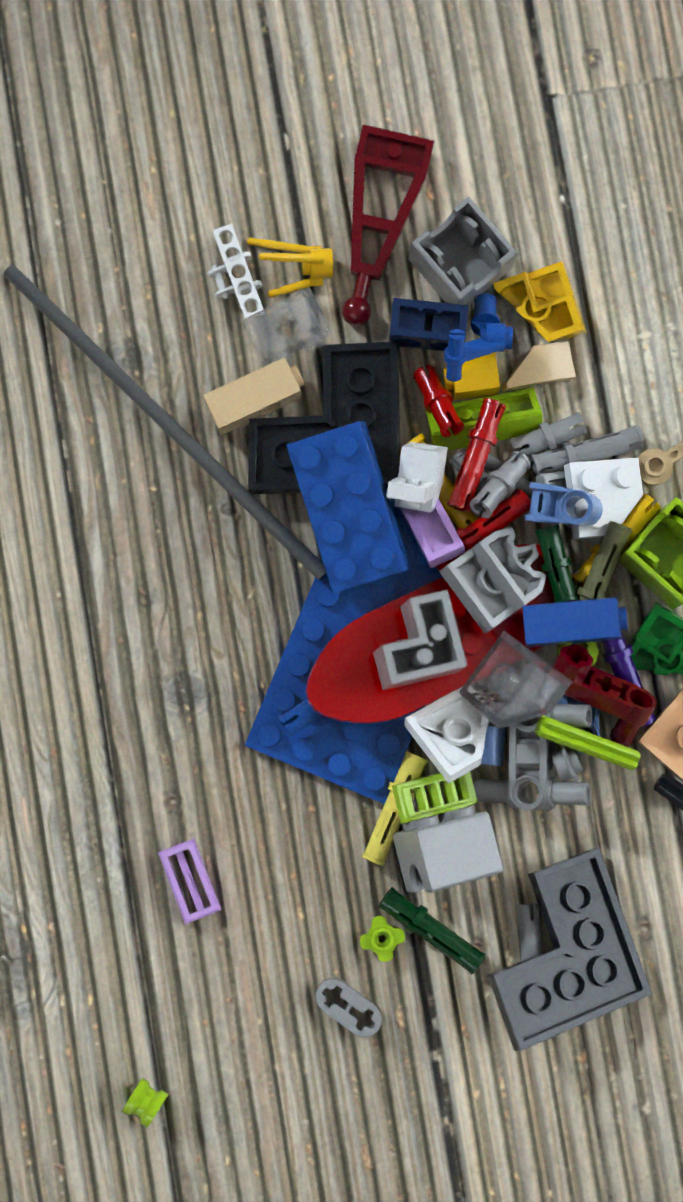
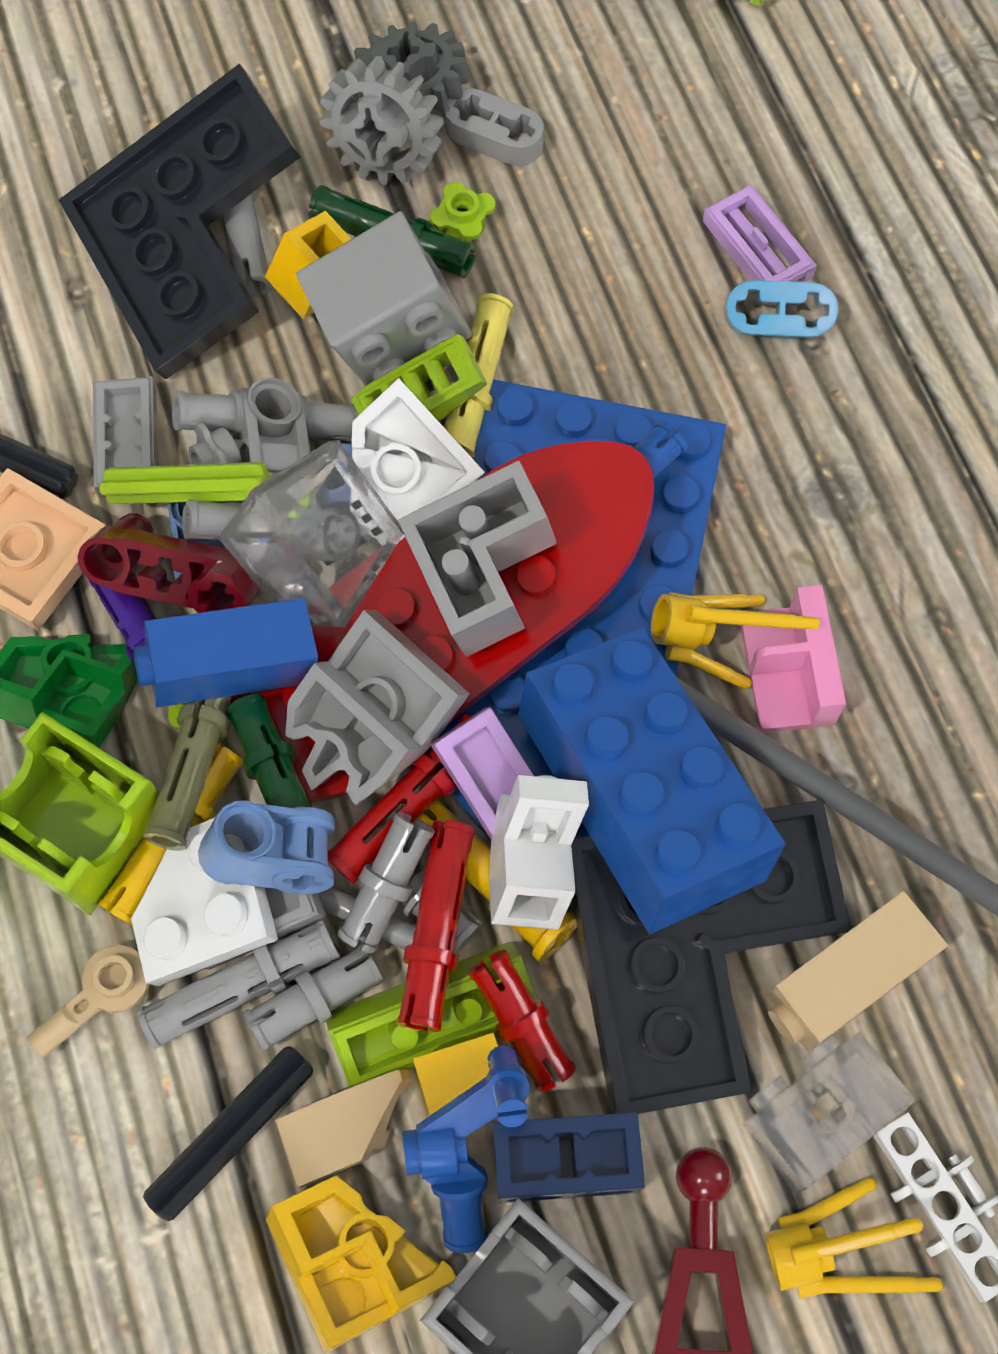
camera: 175 degrees right, 15 degrees down
(190, 821) = (781, 294): none -> beam
(242, 582) = (795, 669): none -> bright pink panel
(303, 607) = (690, 621): none -> yellow plant
(411, 1069) = (425, 54): none -> dark grey gear
(428, 1004) = (381, 120): none -> light grey gear
(487, 901) = (299, 249): none -> yellow brick
(600, 376) = (227, 1134): none -> black axle
(621, 806) = (124, 425): none -> light grey plate

